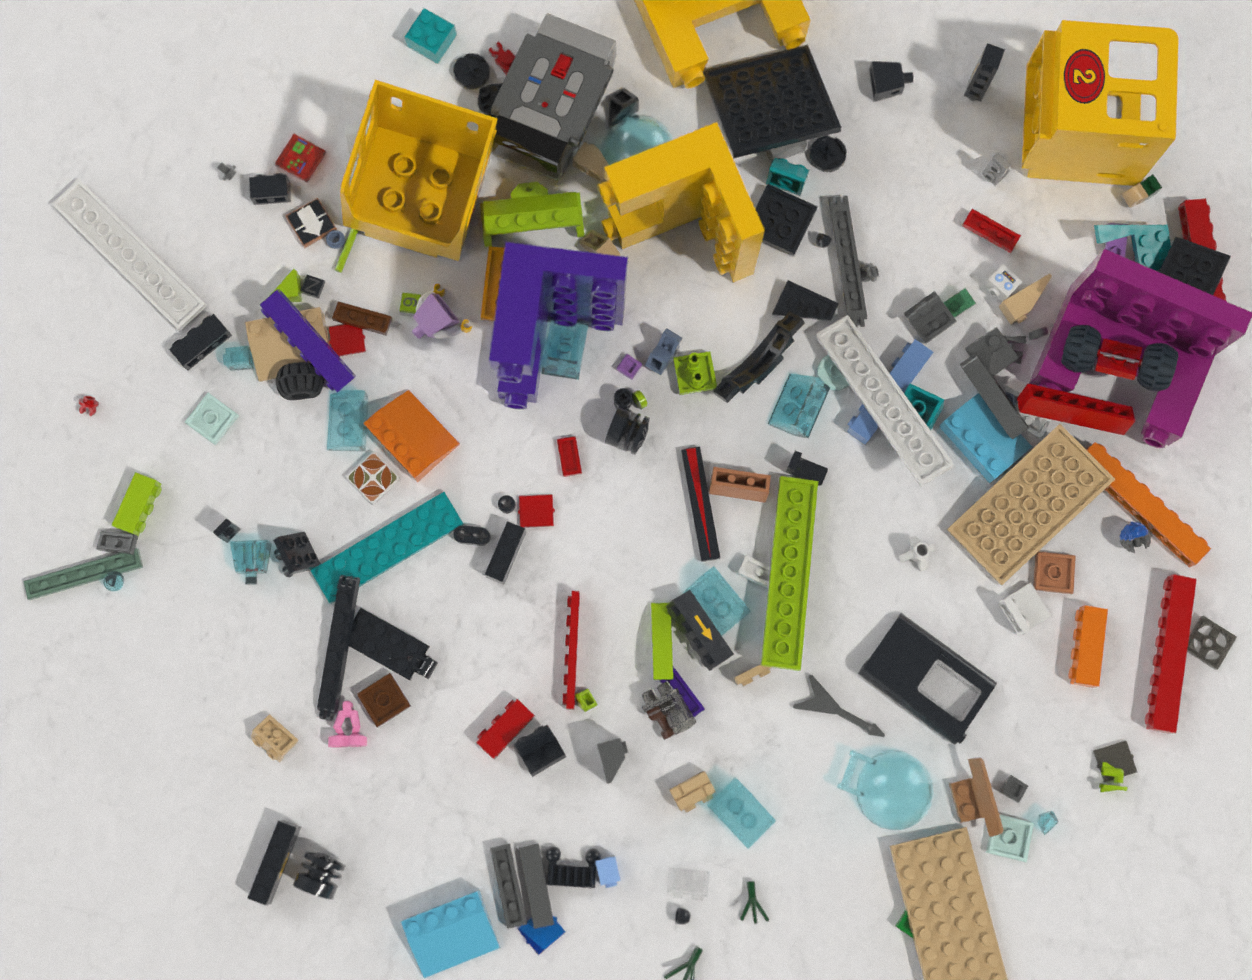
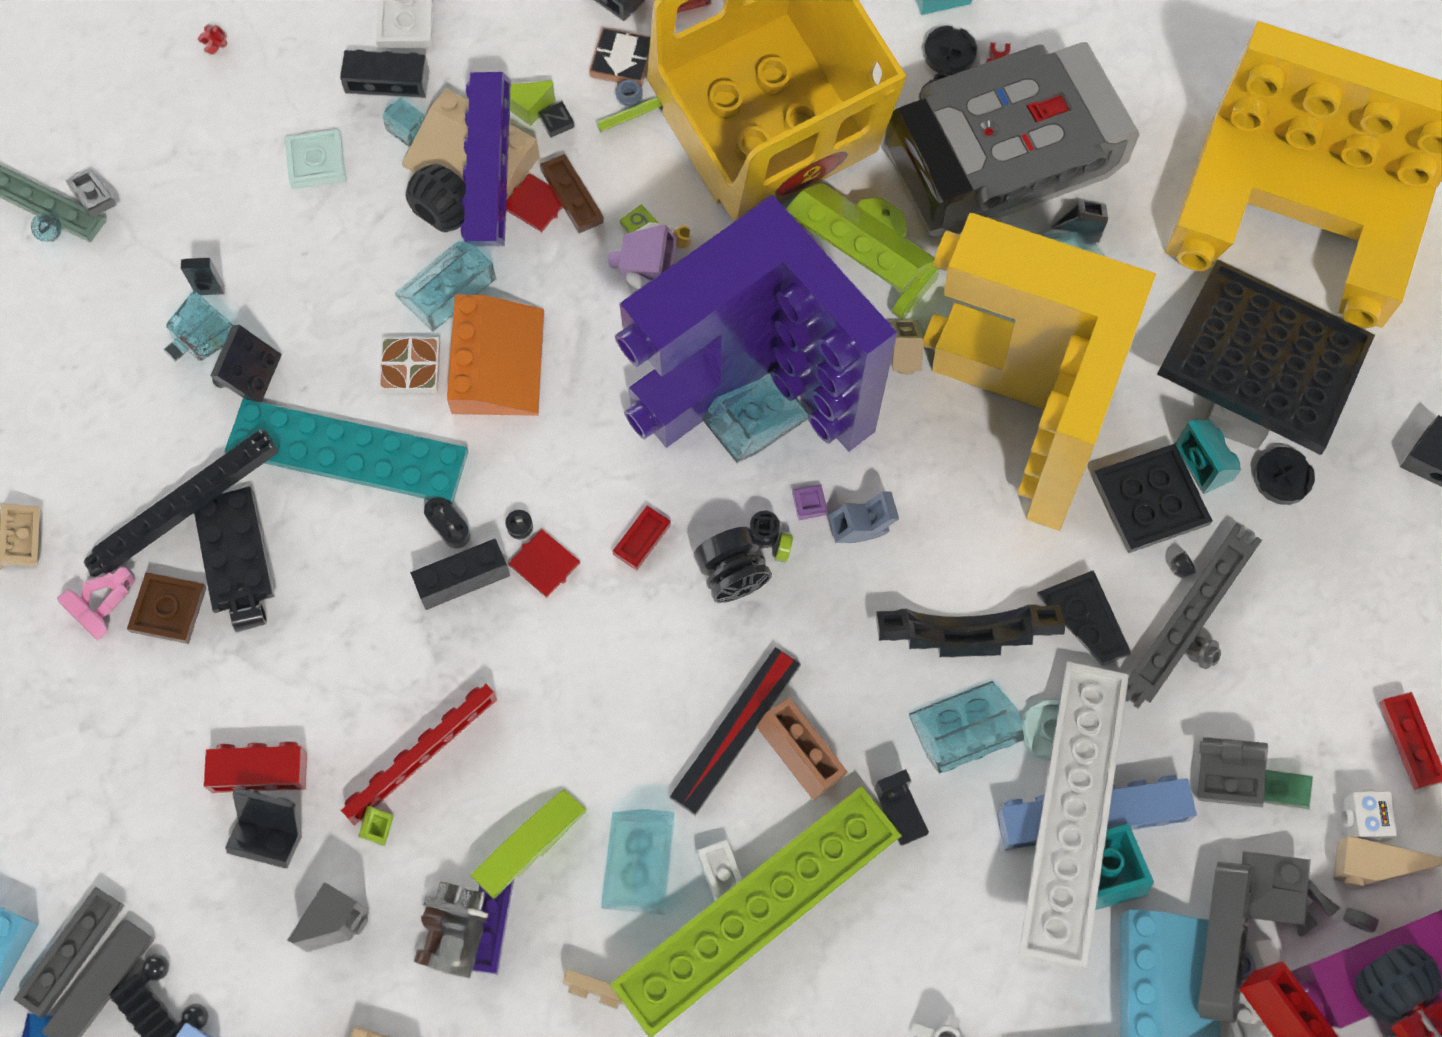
camera: 45 degrees right, 10 degrees down
(137, 504) = (149, 173): lime brick -> none
(695, 373) = (878, 575): lime plate -> none
(699, 630) = (583, 873): black brick -> none

